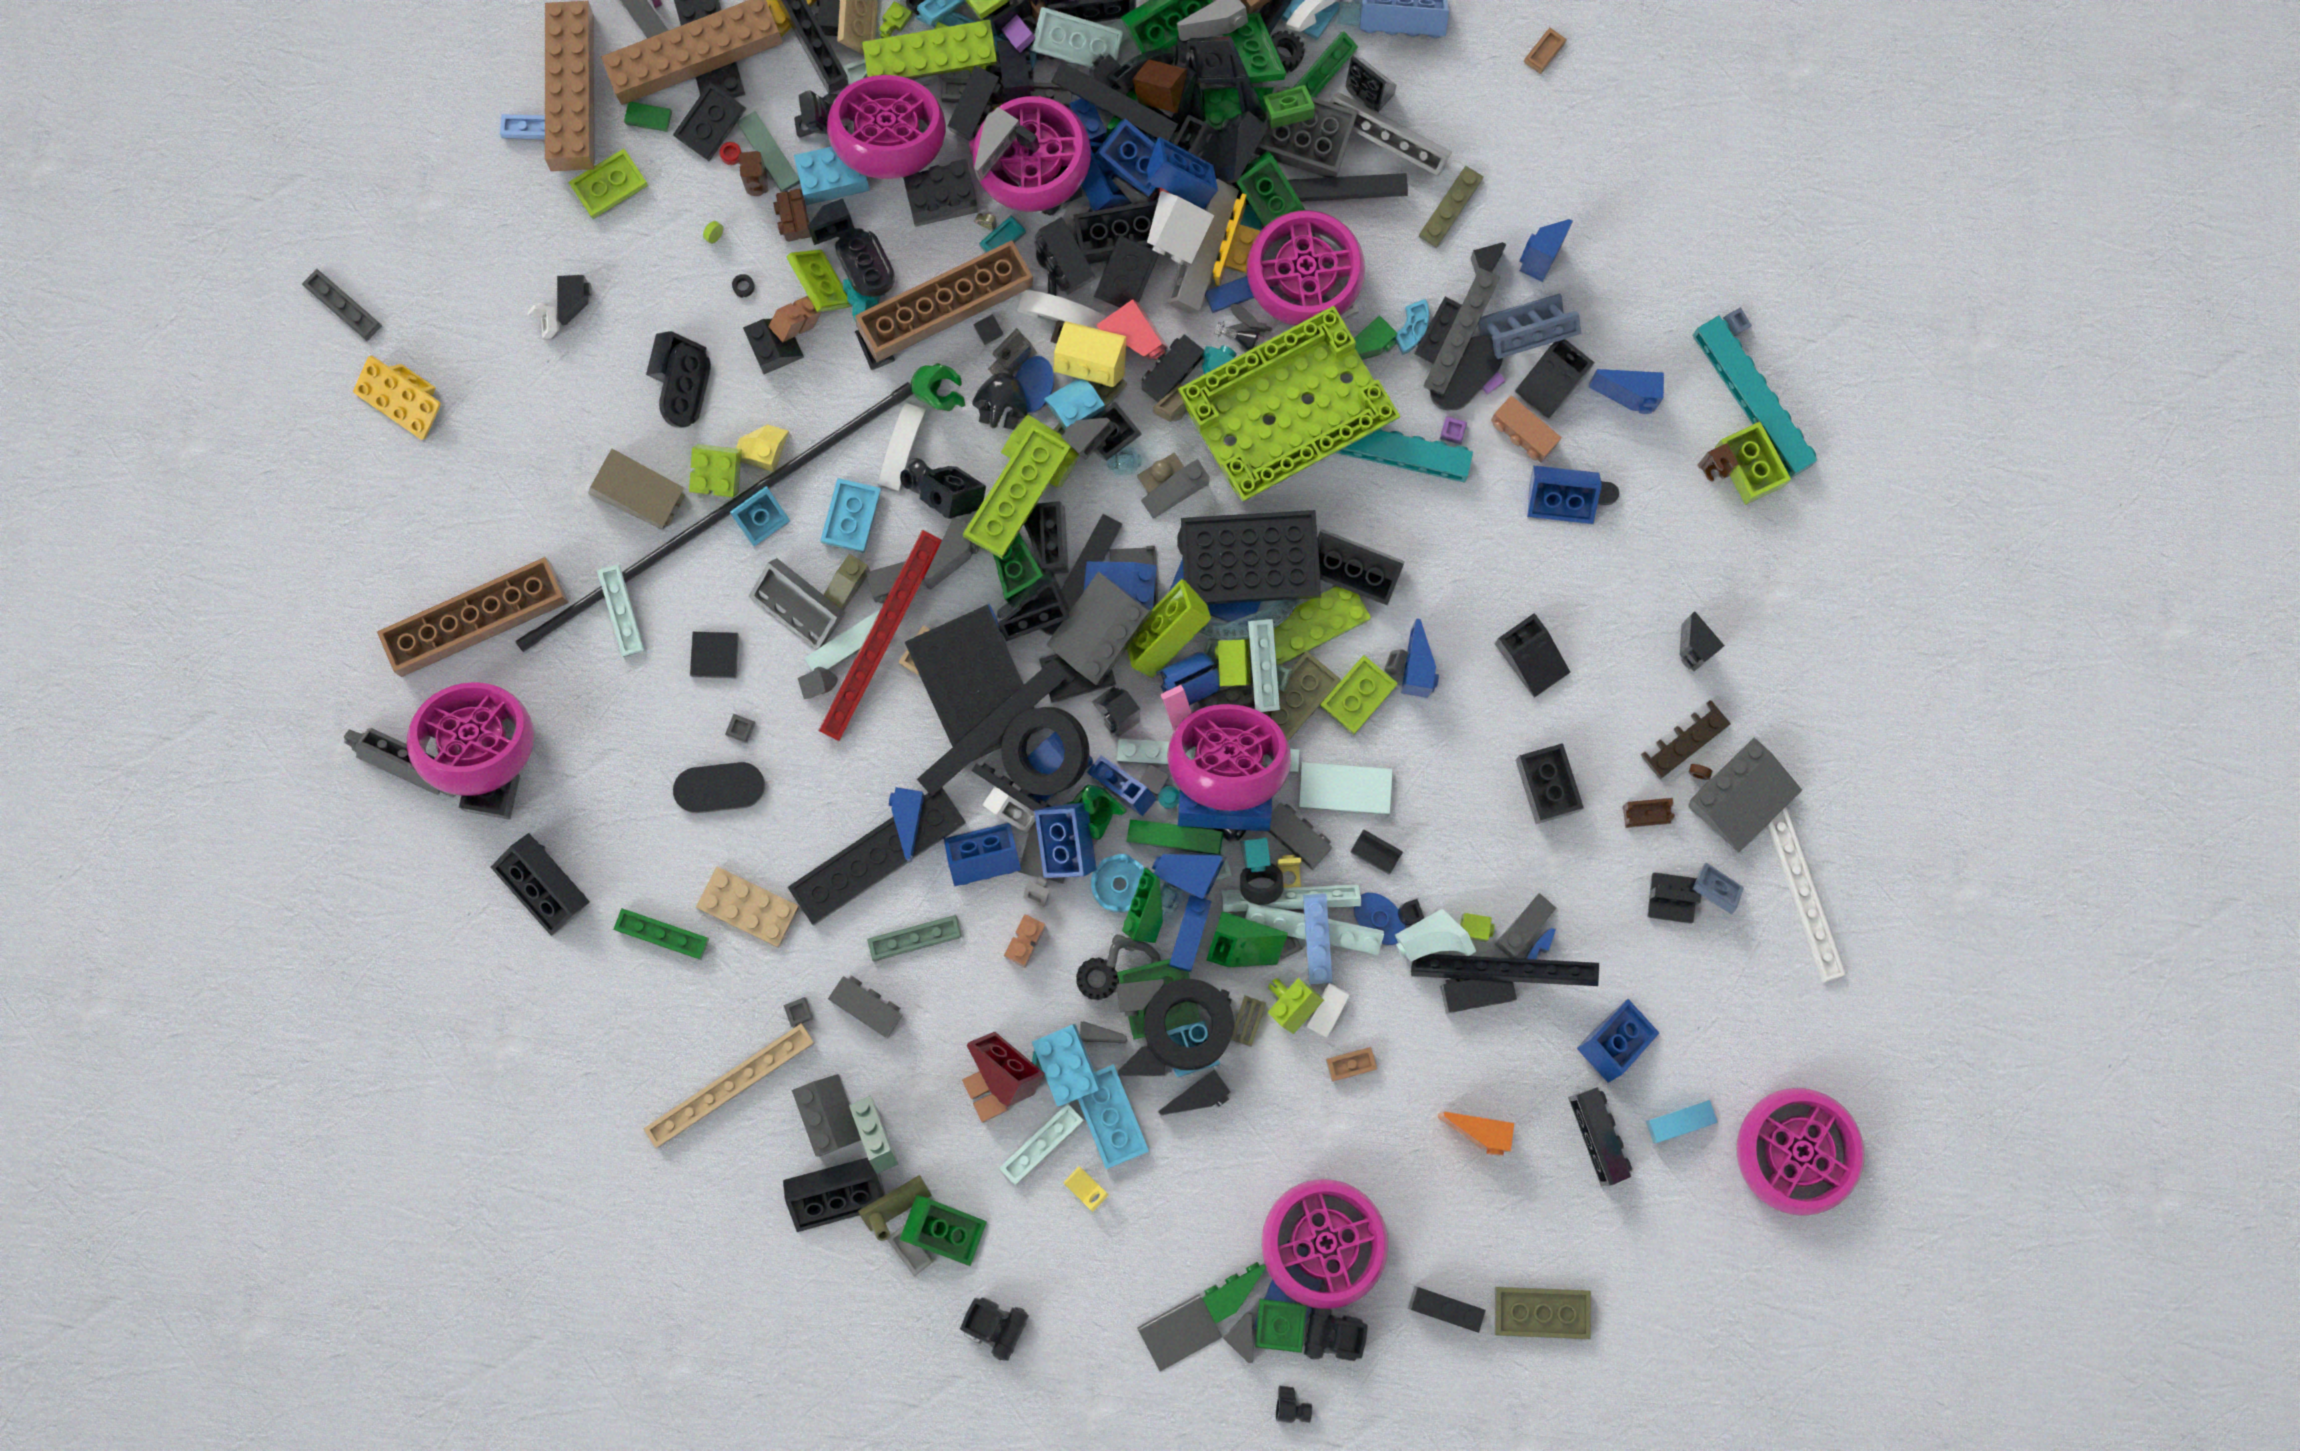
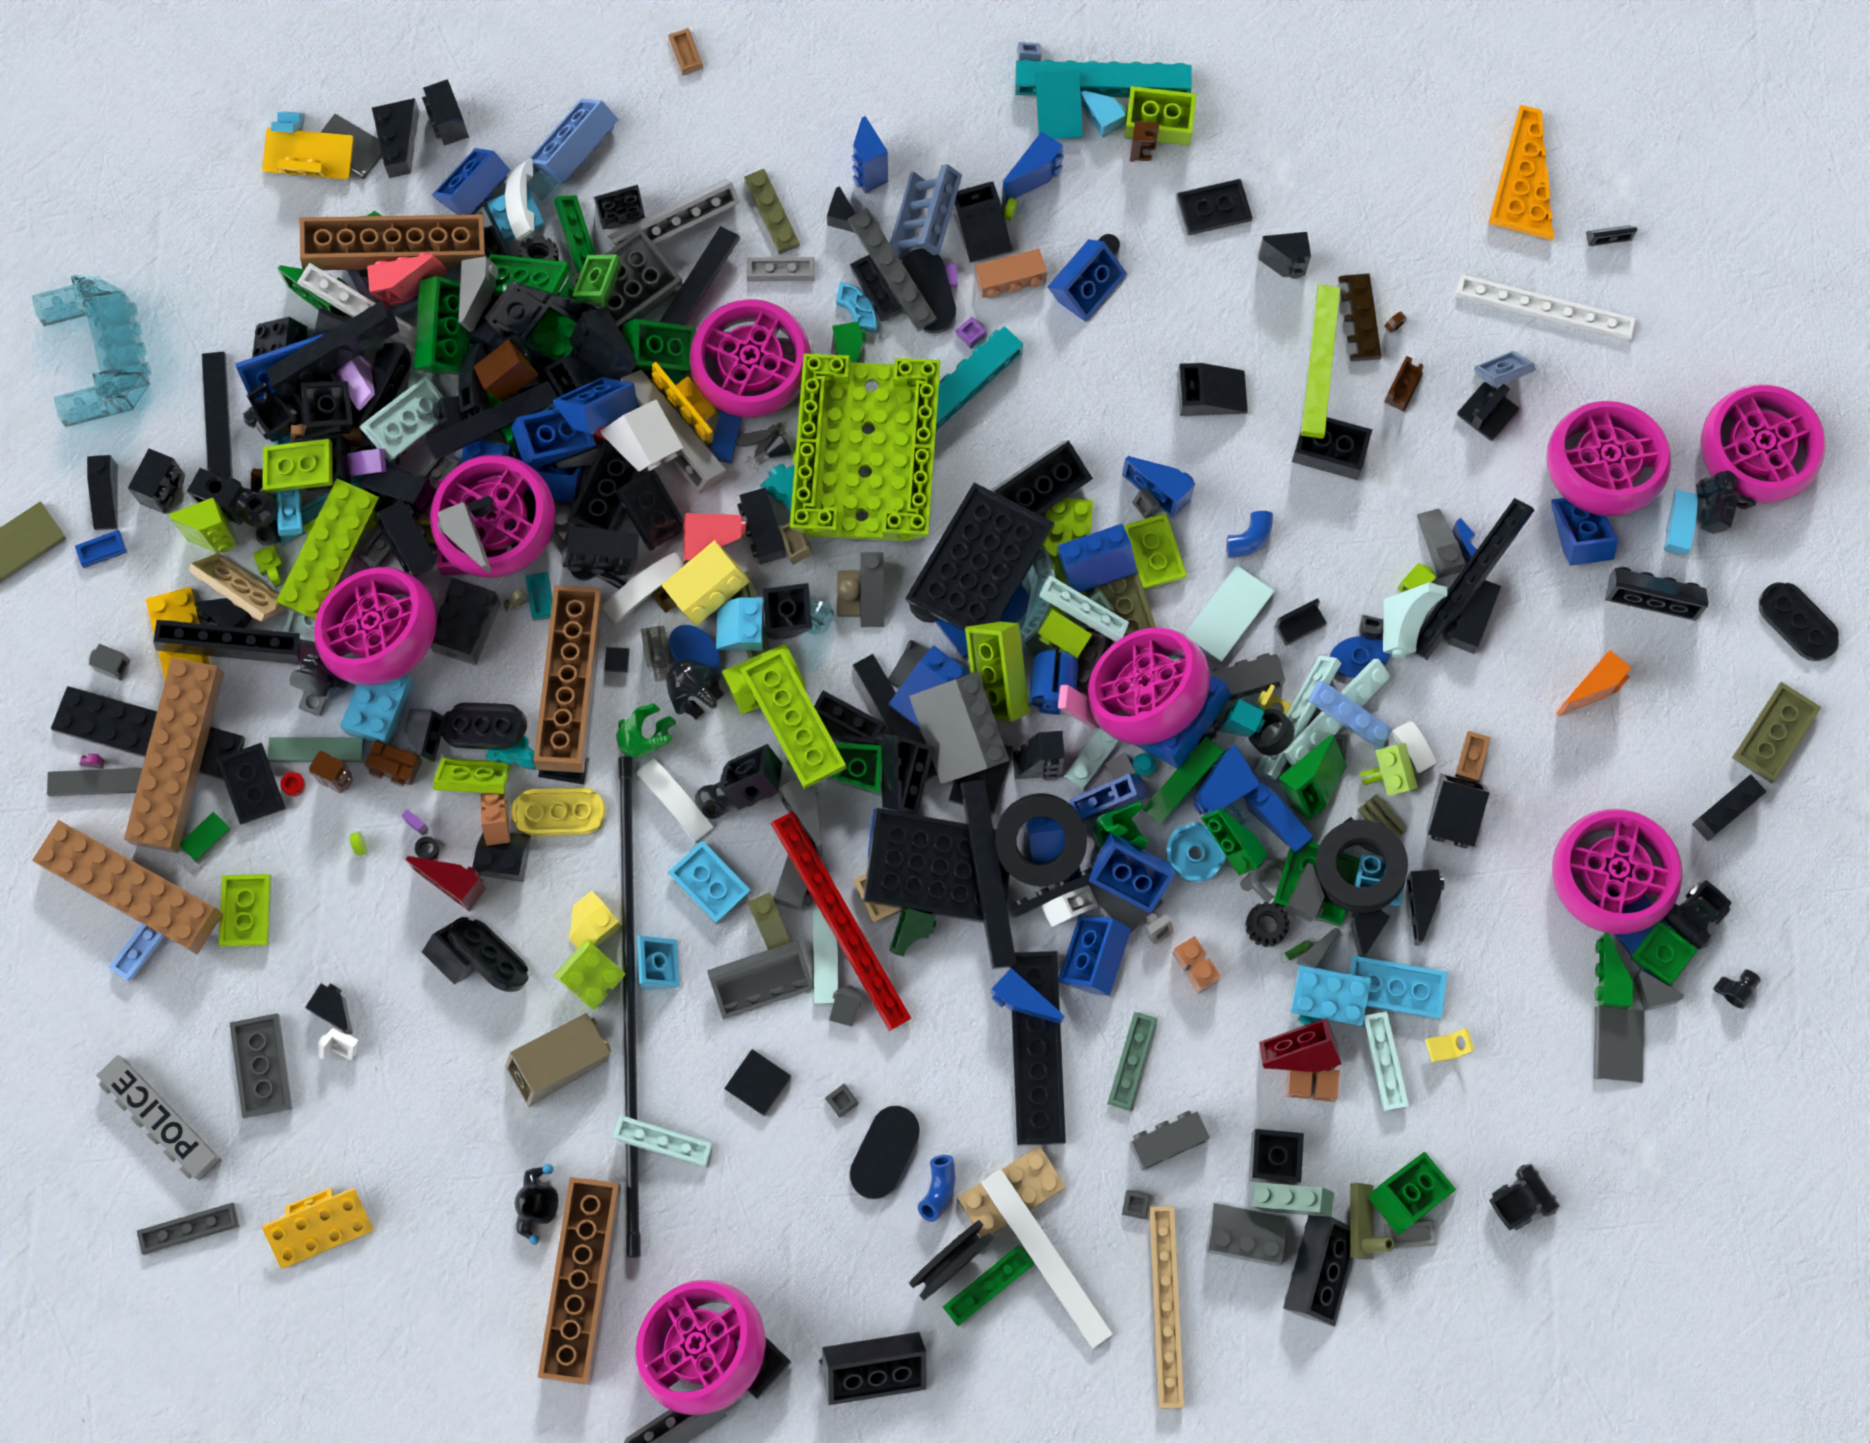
camera: 55 degrees left, 5 degrees down
(409, 227) = (158, 1117): none -> light grey brick
(496, 274) = (260, 1065): none -> dark grey plate
(514, 545) = (535, 1202): none -> black piece
(655, 889) = (951, 1260): none -> black tyre
(709, 966) = (1046, 1258): none -> white tile
(715, 849) = (941, 1188): none -> blue cylinder
(723, 324) = (454, 880): none -> dark red slope
(756, 262) = (414, 822): none -> medium lavender tile
(835, 365) = (558, 812): none -> light yellow tile
(903, 1101) = (1276, 1157): none -> black brick
(911, 695) = (911, 927): none -> dark green arch
(1087, 435) = (780, 629): dark grey slope -> none
(1091, 1017) = (1297, 950): none -> bright green piece
(1294, 1078) = (1457, 810): none -> black slope
(1317, 651) = (1097, 559): none -> blue slope
(1405, 245) = (780, 269): none -> light grey tile
(1425, 768) = (1253, 537): none -> blue cylinder
(1584, 394) = (1010, 208): none -> lime tile
(1618, 729) = (1320, 361): none -> lime tile
(1659, 1276) = (1799, 621): none -> black tile
(1703, 559) = (1214, 206): none -> black tile
(1704, 374) = (1059, 104): none -> teal tile
(1720, 1145) = (1720, 501): none -> black piece
(1723, 994) = (1624, 432): none -> dark pink wheel
(1725, 415) = (1103, 112): none -> medium azure slope
(1745, 795) = (1438, 299): dark grey slope -> none
(1901, 808) = (1523, 187): none -> light orange wing
(1910, 908) = (1611, 235): none -> black slope

